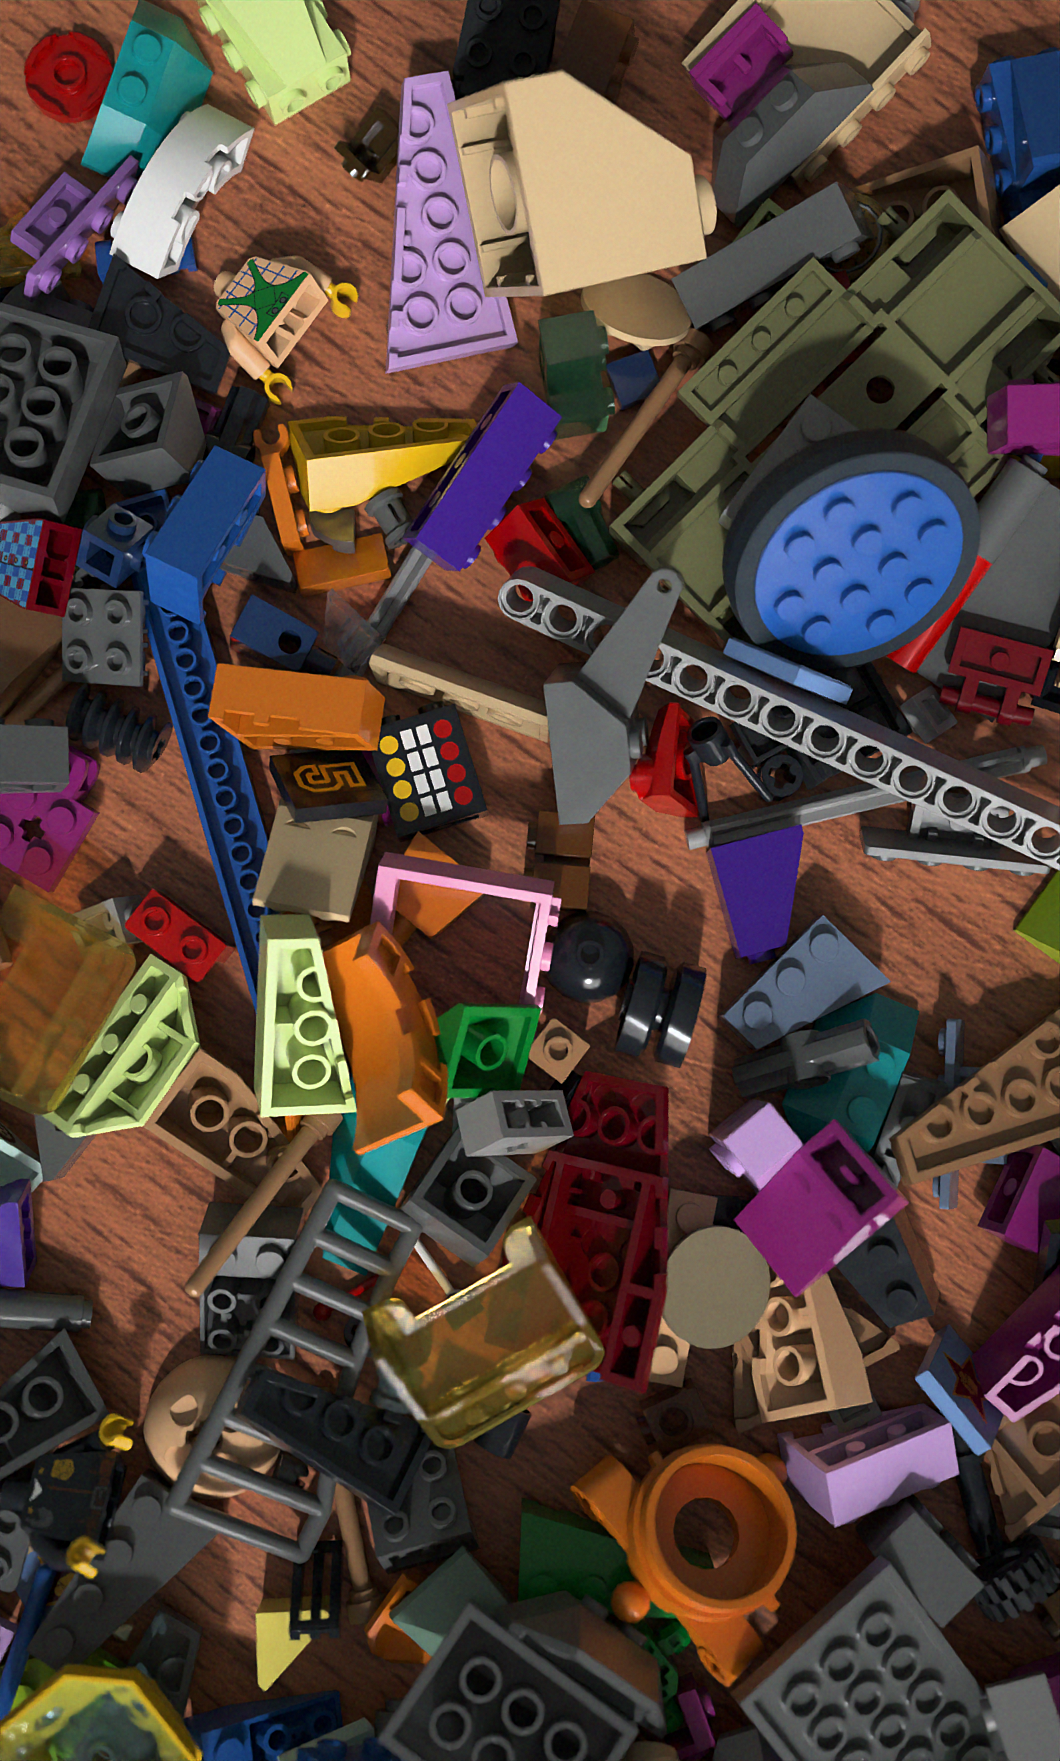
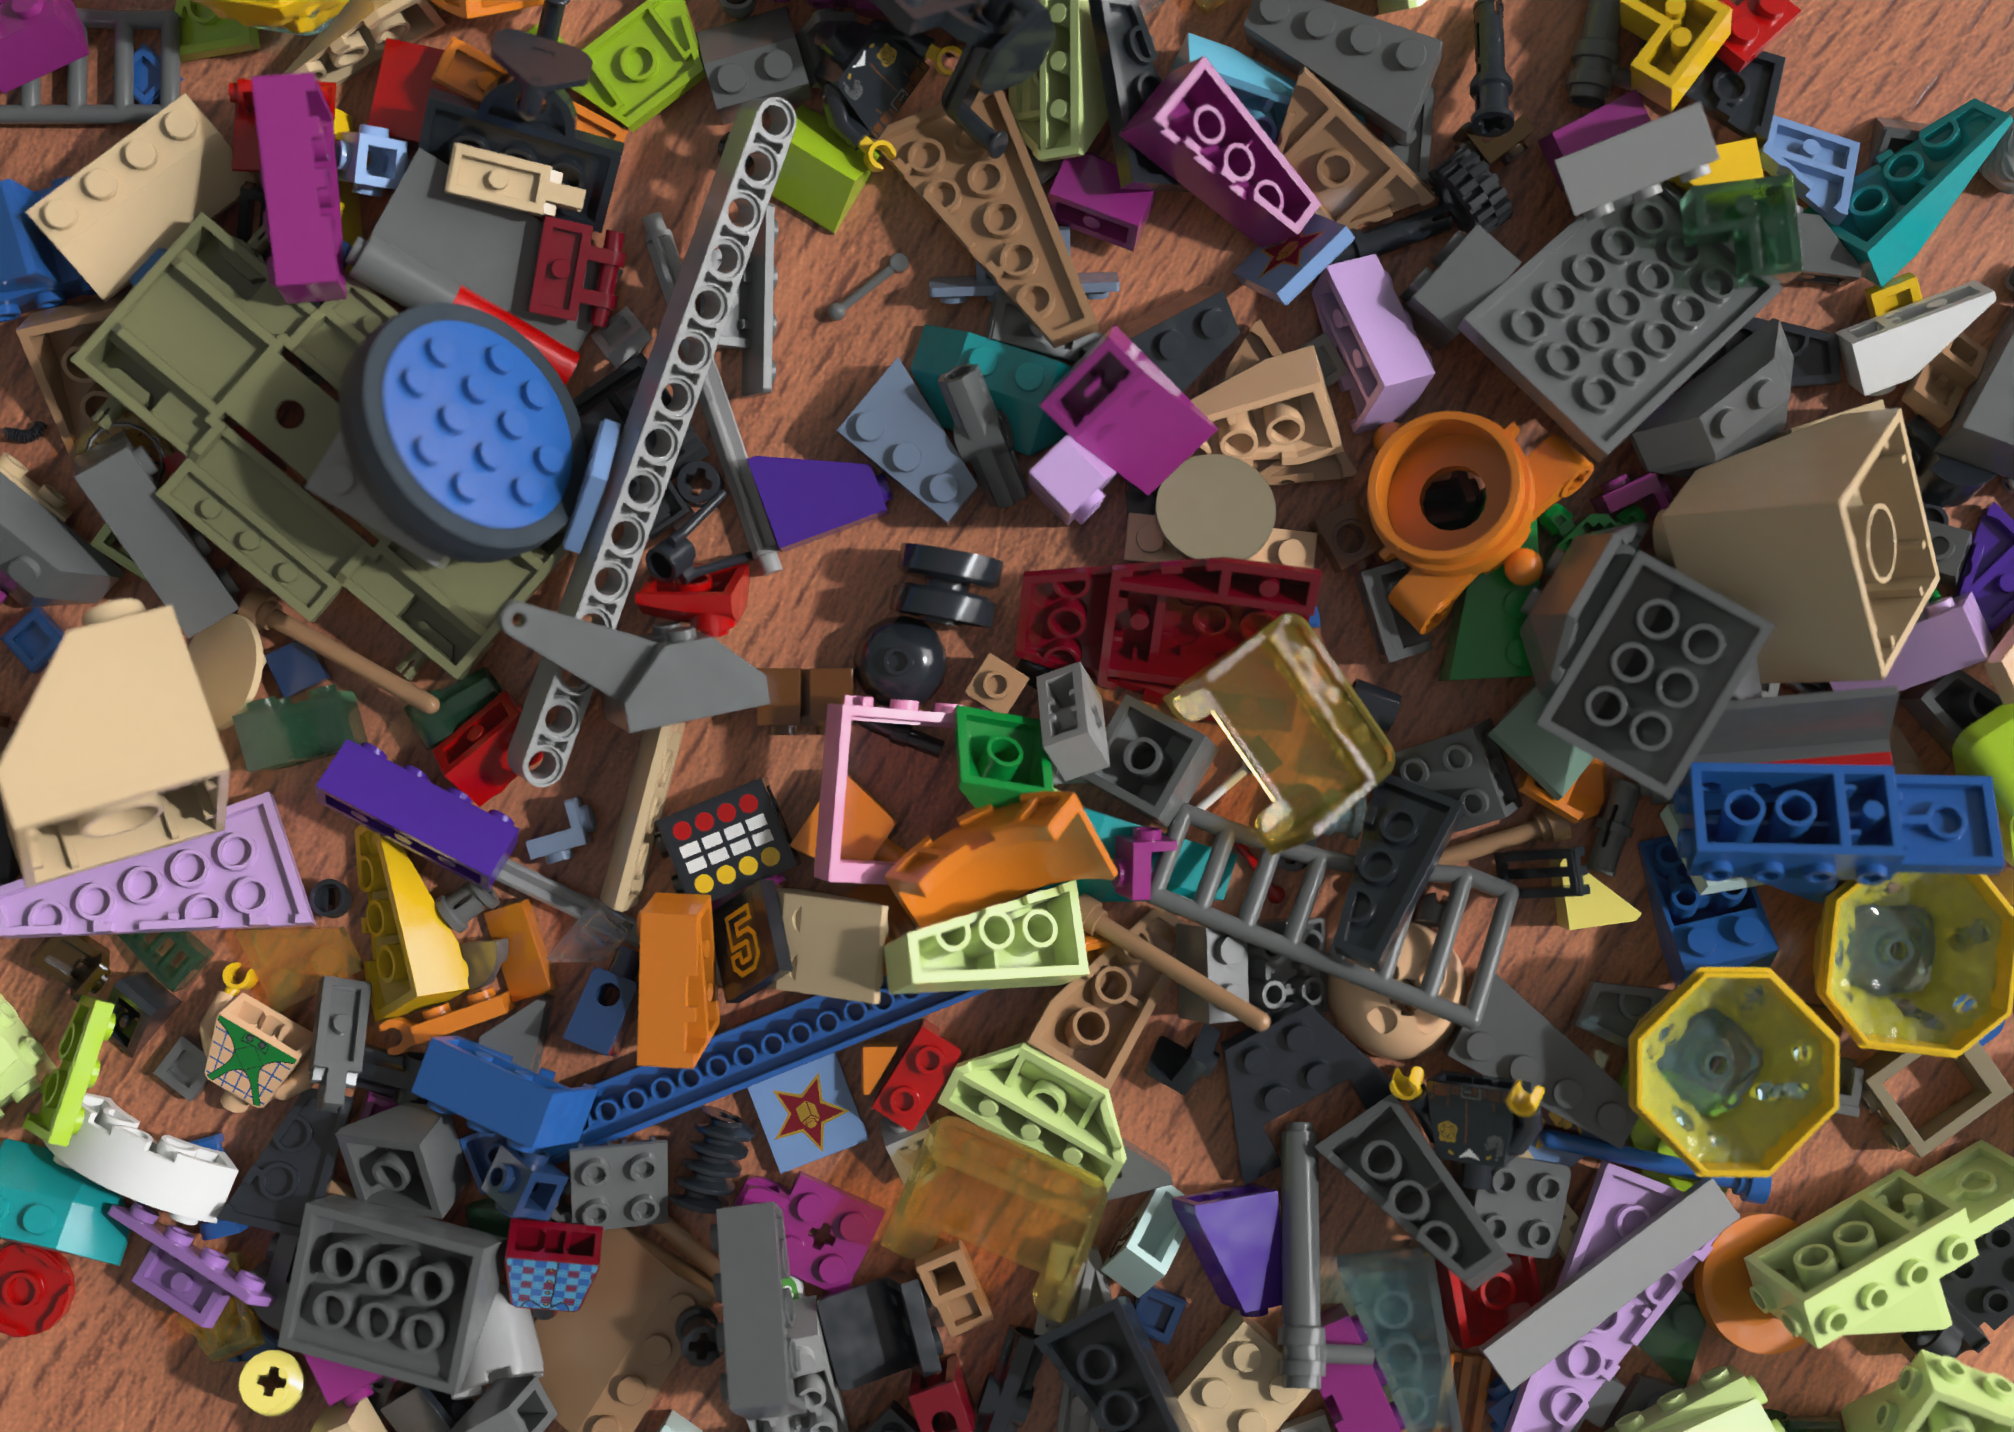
camera: 85 degrees left, 5 degrees up
(146, 1307) = (1285, 1068): none -> black wing
(154, 827) = (808, 1113): none -> medium blue tile
(160, 1202) = (1182, 1066): none -> black bracket
(198, 895) = (874, 1061): none -> orange slope
(254, 126) = (66, 1087): none -> lime wing
(262, 240) = (185, 1068): none -> flat silver tile
(274, 383) = (338, 1039): none -> dark grey hinge
(320, 201) = (140, 1011): none -> black slope
(349, 236) = (173, 978): none -> clear green slope
(353, 356) = (296, 958): none -> clear yellow wing
(356, 1668) = (1614, 827): none -> dark grey pin
(369, 1172) = (1134, 861): none -> magenta bracket
(409, 383) = (323, 898): none -> black hinge
(440, 610) = (560, 844): none -> sand blue bracket
(515, 955) = (905, 735): none -> black piece
(578, 1452) = (1390, 630): none -> dark grey hinge
(686, 135) = (34, 639): none -> blue tile
(702, 1531) = (1452, 501): none -> black bracket
(876, 150) = (24, 433): none -> black leg
(979, 989) = (898, 264): none -> dark grey hinge

